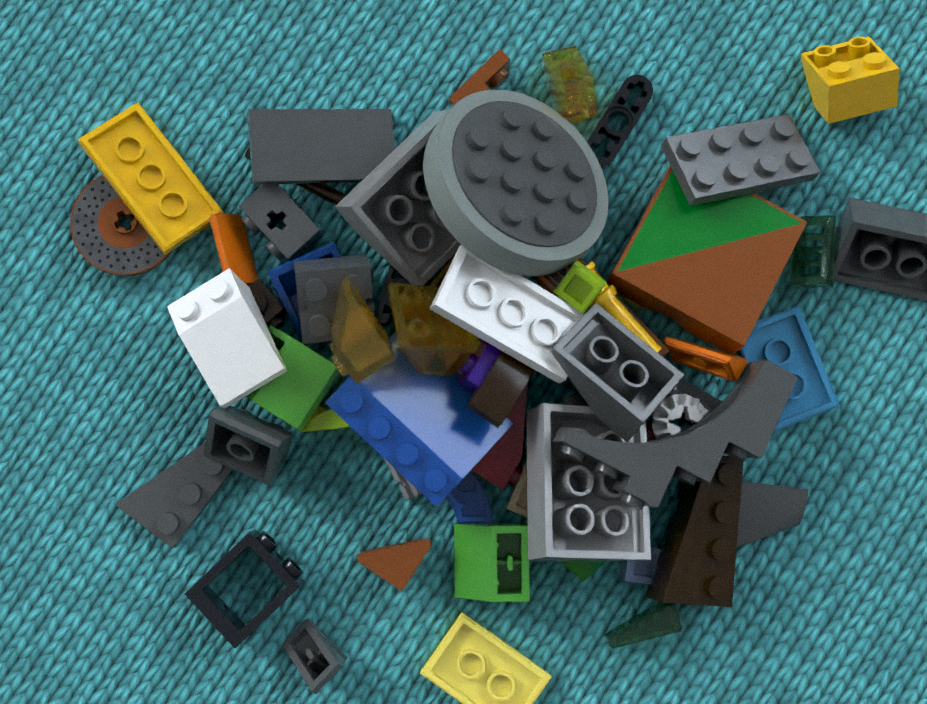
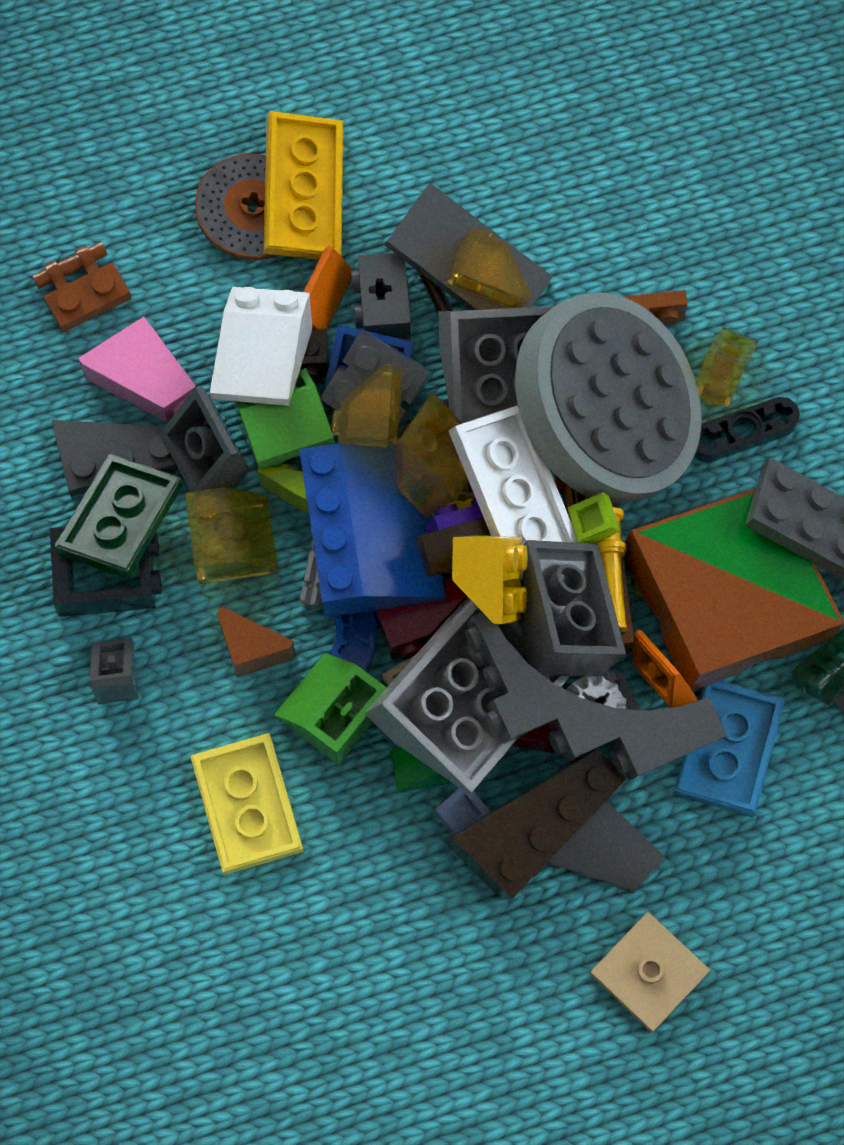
camera: 35 degrees right, 15 degrees down
(59, 389) = (87, 296): none -> dark orange plate
(150, 416) = (139, 370): none -> bright pink slope
(228, 548) = (118, 516): none -> tile
(316, 490) = (230, 534): none -> clear yellow slope
(345, 144) = (488, 270): none -> clear yellow slope
(549, 400) = (490, 574): none -> yellow slope
(651, 623) = (429, 868): clear green slope -> none
(852, 573) = (649, 972): none -> tan plate

